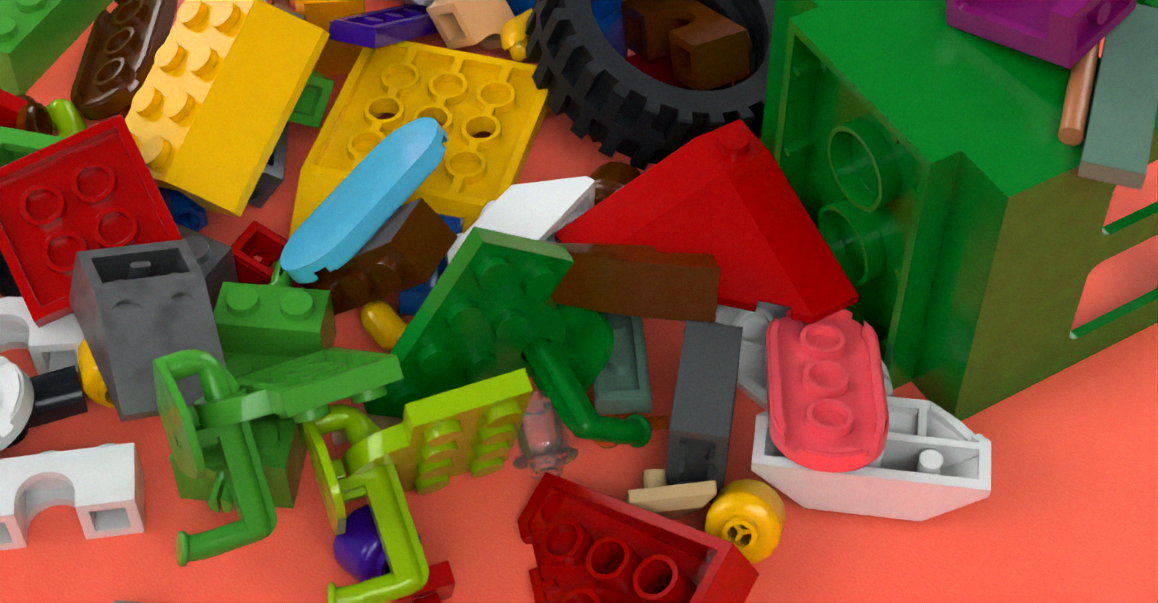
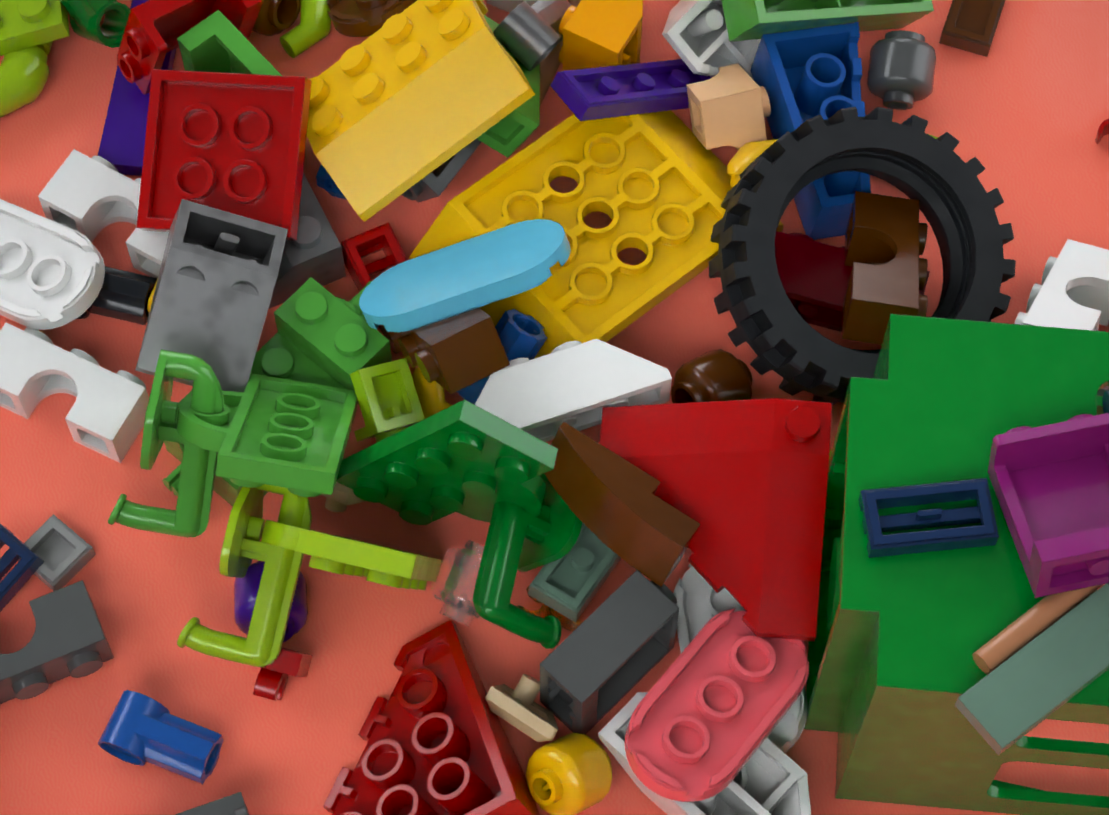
camera: 35 degrees right, 15 degrees up
(359, 327) = (386, 399): none -> lime bracket
(946, 74) = (930, 540): none -> dark blue tile

